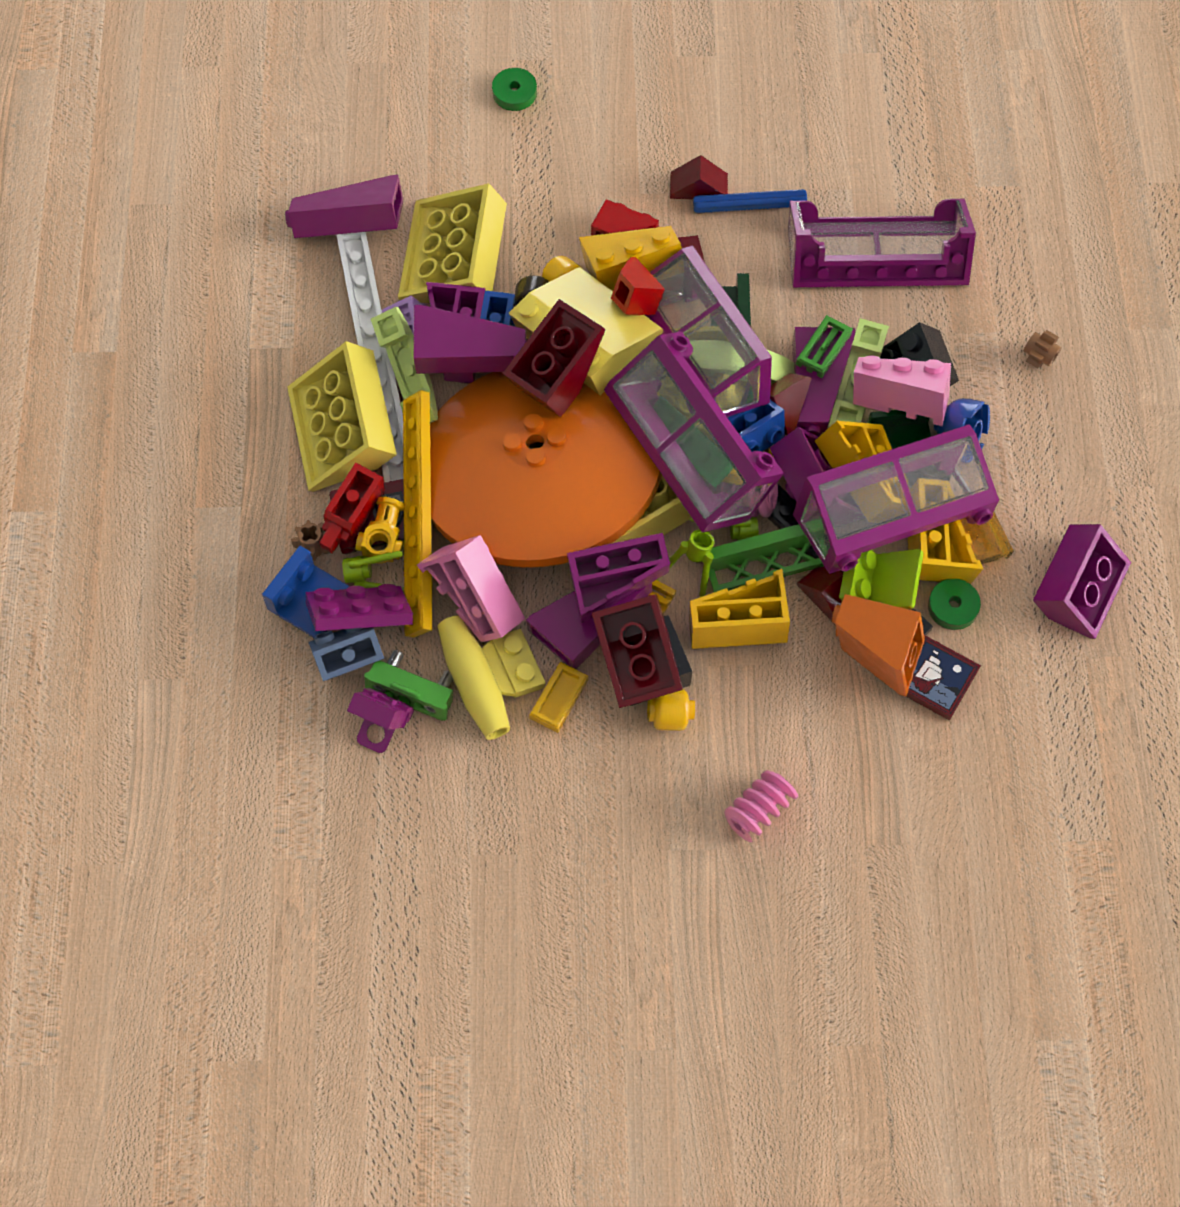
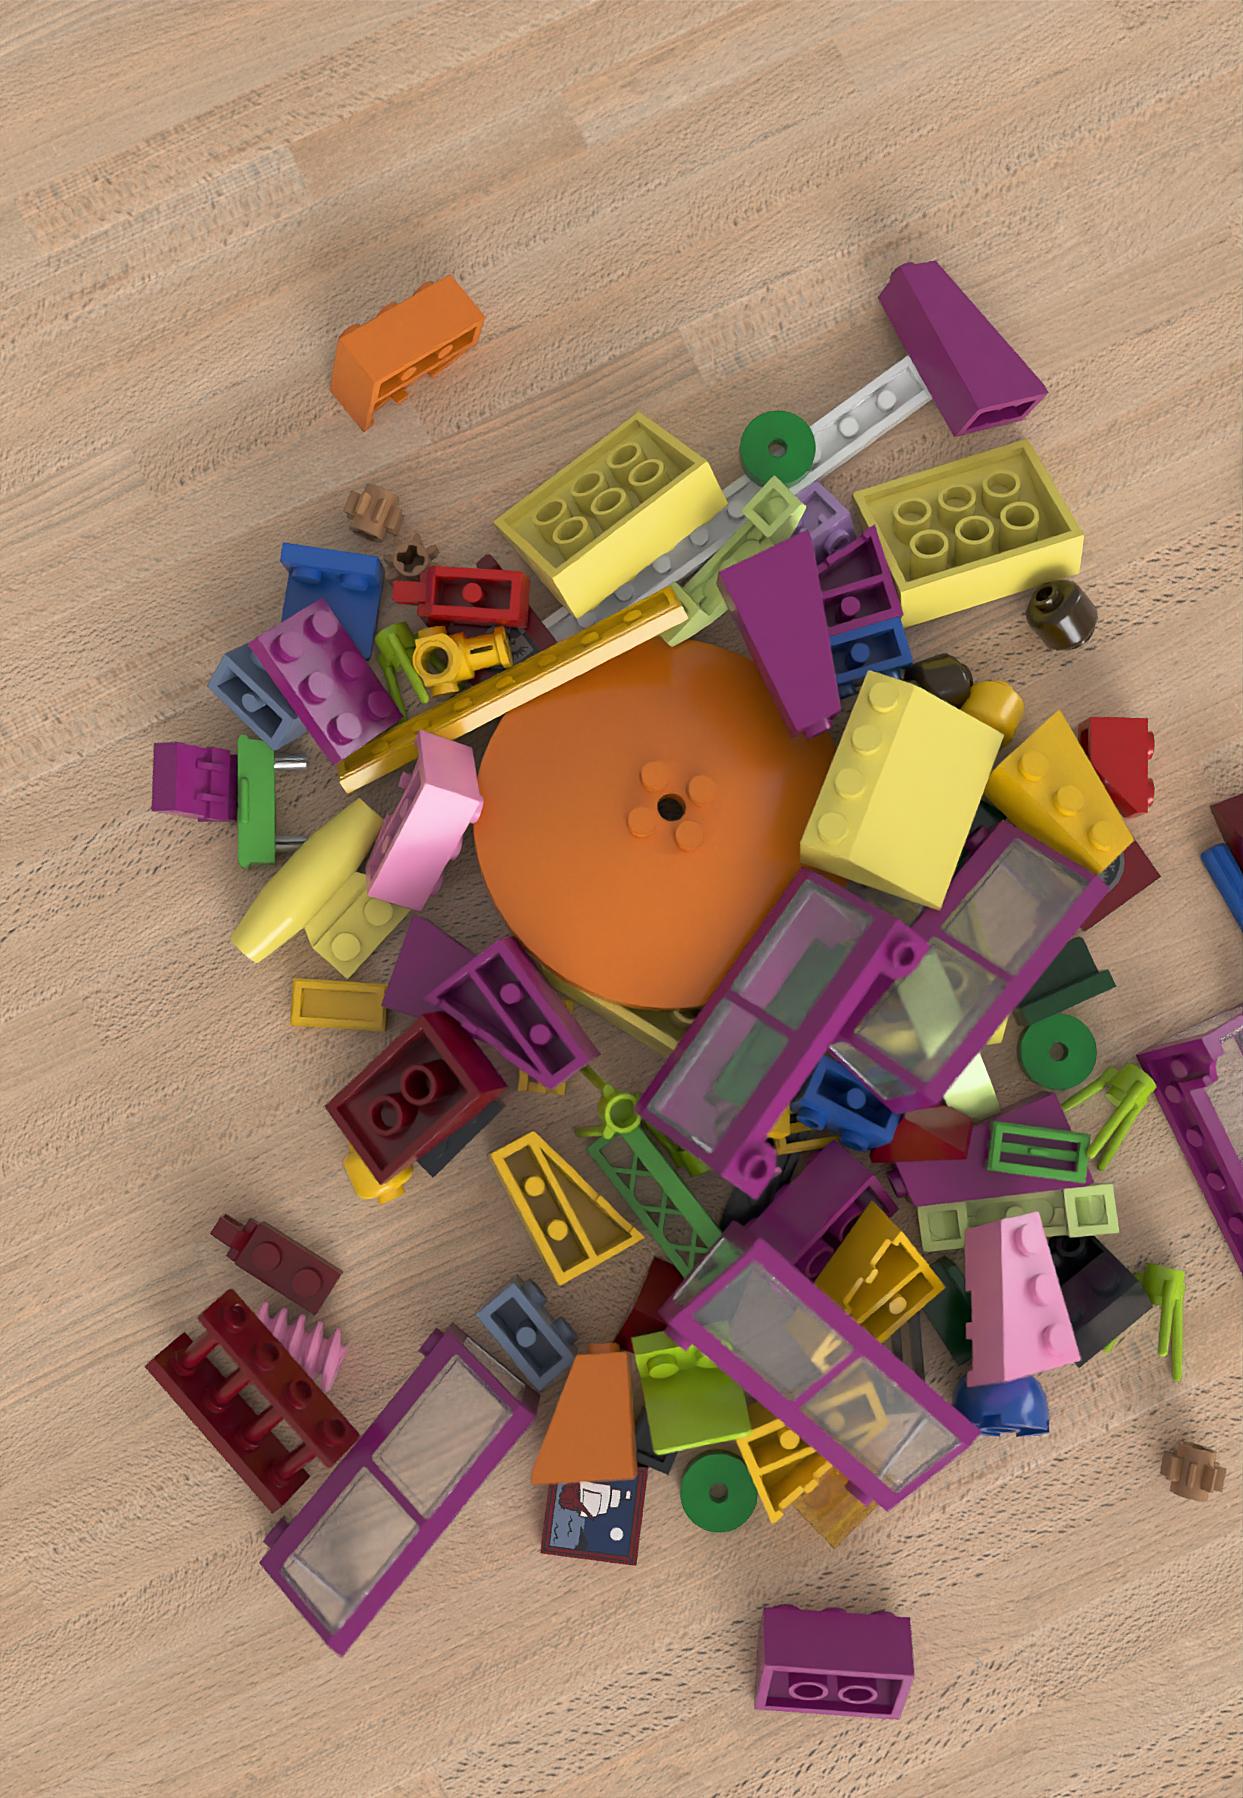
camera: 65 degrees right, 20 degrees up
(179, 492) = (401, 345): none -> orange wedge
(268, 547) = (374, 513): none -> medium nougat gear
(352, 307) = (780, 429): none -> green piece
(525, 219) = (1062, 615): none -> dark brown head
(556, 358) = (804, 779): dark red slope -> none
(637, 290) = (989, 841): red slope -> none
(703, 799) = (278, 1261): none -> dark red hinge
(773, 313) = (1077, 1058): none -> green piece
(806, 859) = (230, 1422): none -> dark red fence
(810, 661) = (528, 1331): none -> sand blue brick
(812, 297) = (1128, 1093): none -> lime plant
(876, 772) = (399, 1487): none -> windscreen
(938, 322) = (1167, 1289): none -> lime plant

